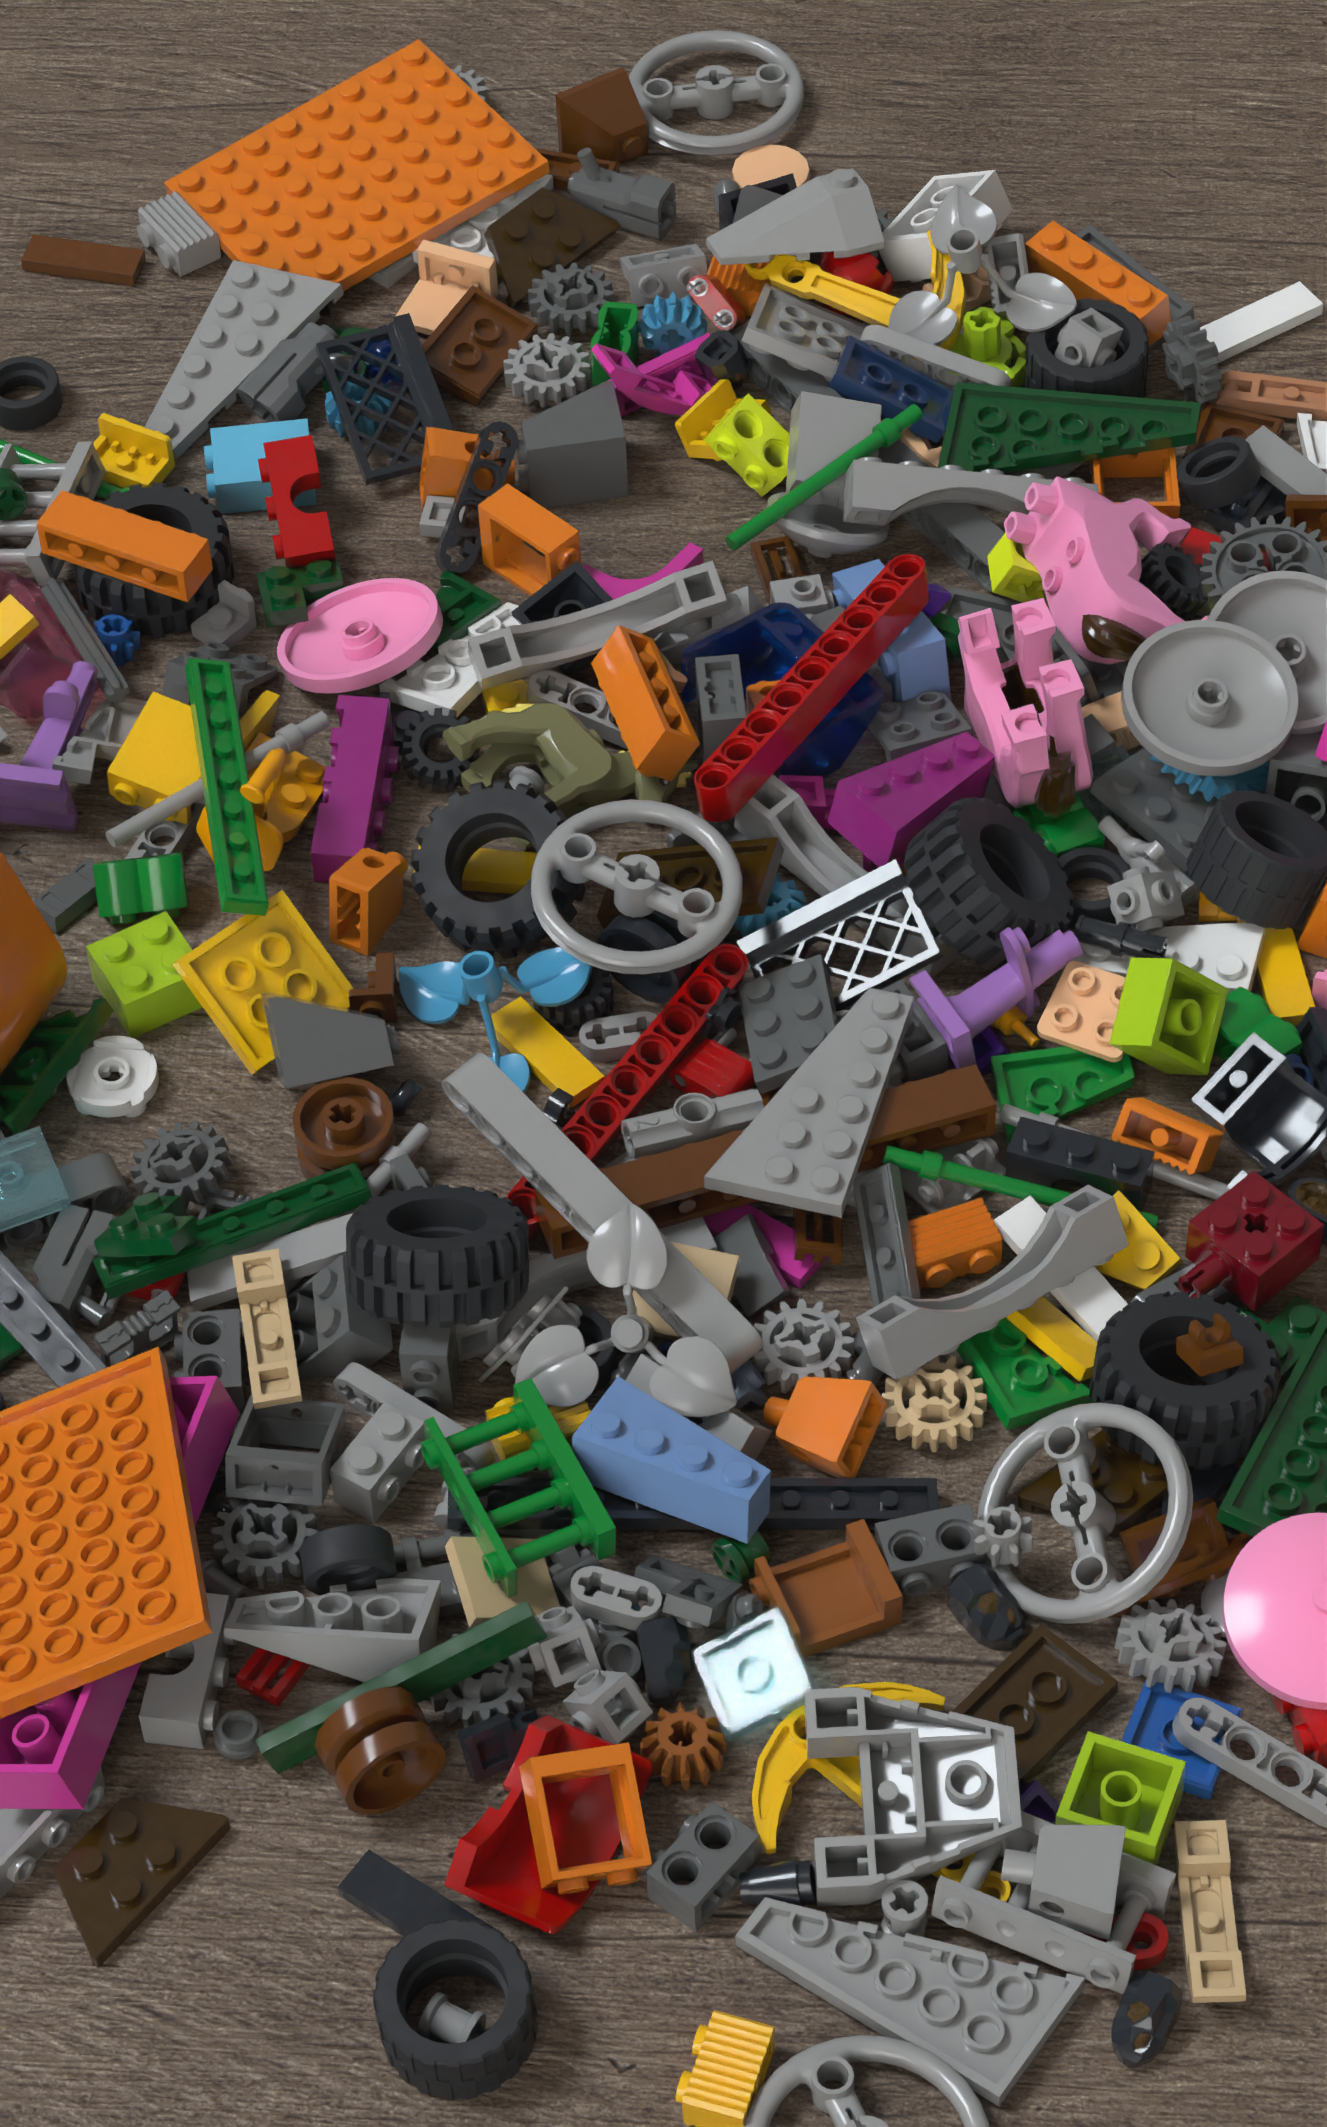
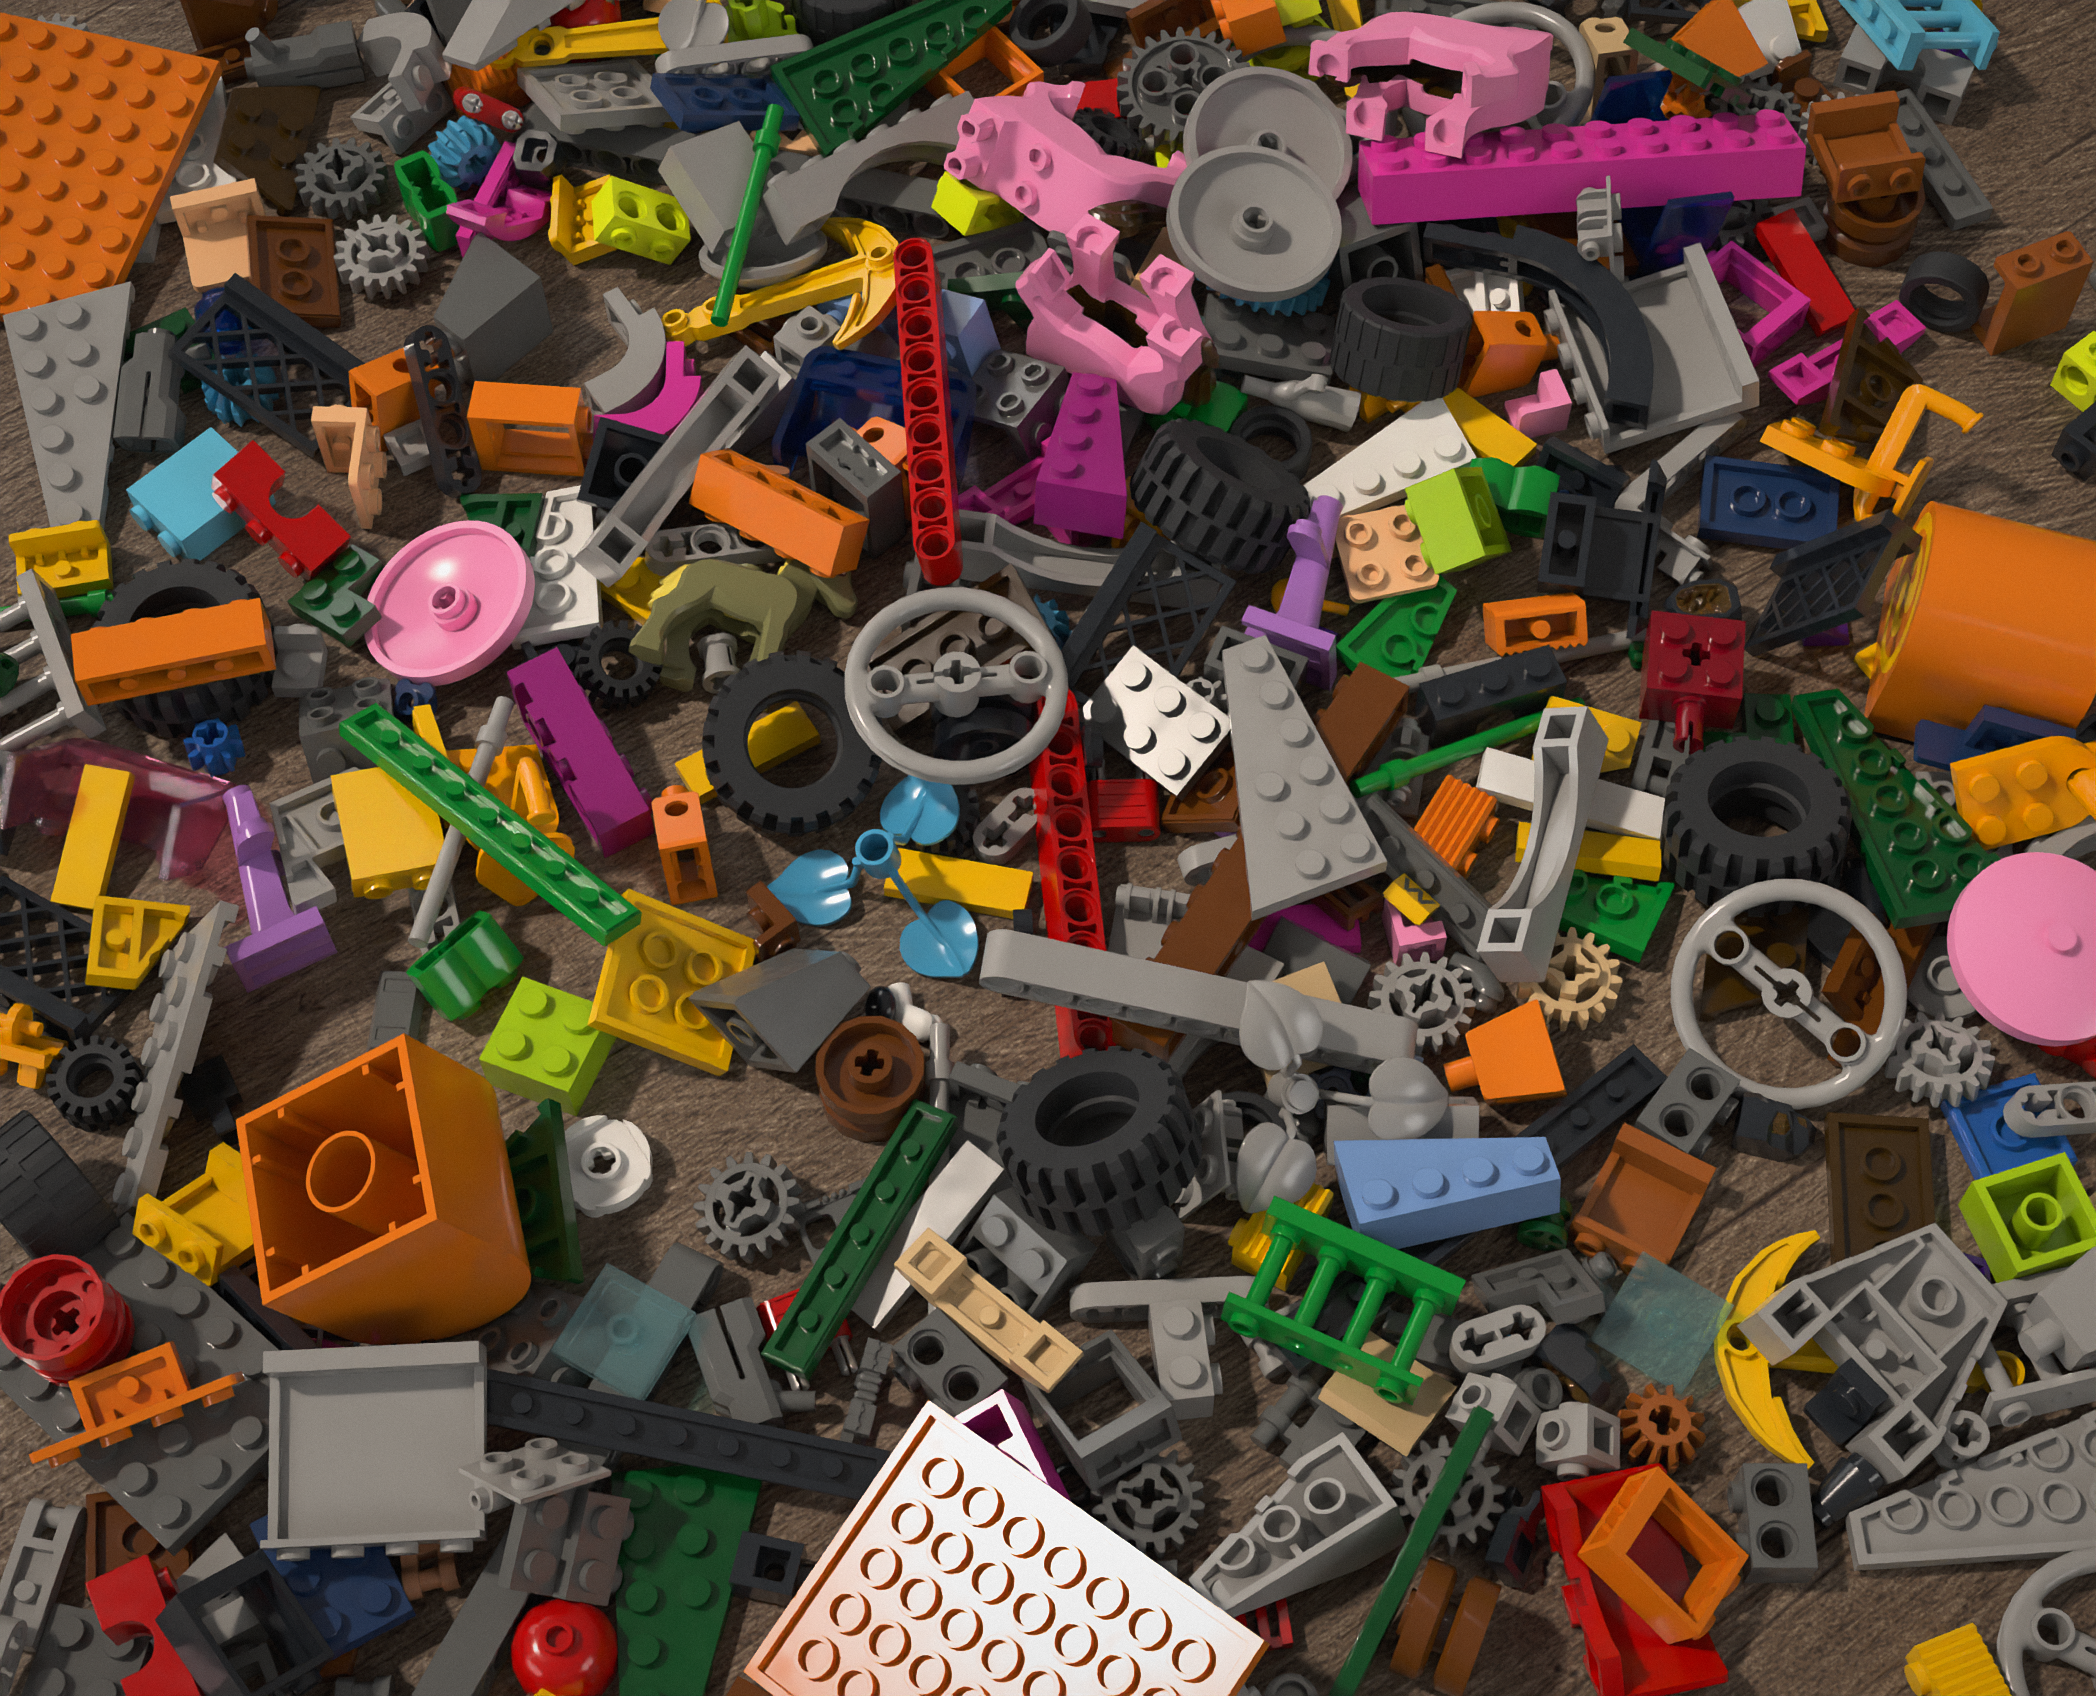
camera: 40 degrees left, 10 degrees up
(85, 639) = (194, 763): dark grey axle -> none
(148, 1228) = (791, 1299): dark green plate -> none
(280, 685) = (406, 692): none -> dark blue plate
(347, 1556) = (1251, 1472): black tyre -> none
(389, 502) = (352, 447): none -> light nougat bracket
(420, 1111) = (912, 1017): none -> white arm
(650, 554) = (642, 371): none -> light grey arch
(689, 222) = (407, 51): none -> light grey arch
(690, 1121) = (1162, 886): light grey piece -> none
(830, 563) = (867, 271): none -> yellow piece
(842, 1818) = (1845, 1403): none -> black bracket
(845, 1292) = (1411, 938): none -> bright pink panel
(855, 1261) = (1411, 899): none -> yellow tile
(1003, 1535) = (1755, 1047): light grey gear -> none
(1120, 938) = (1351, 477): black pin -> none
(1145, 899) = (1342, 419): light grey brick -> none
(1209, 1348) = (1780, 786): reddish brown tile -> none

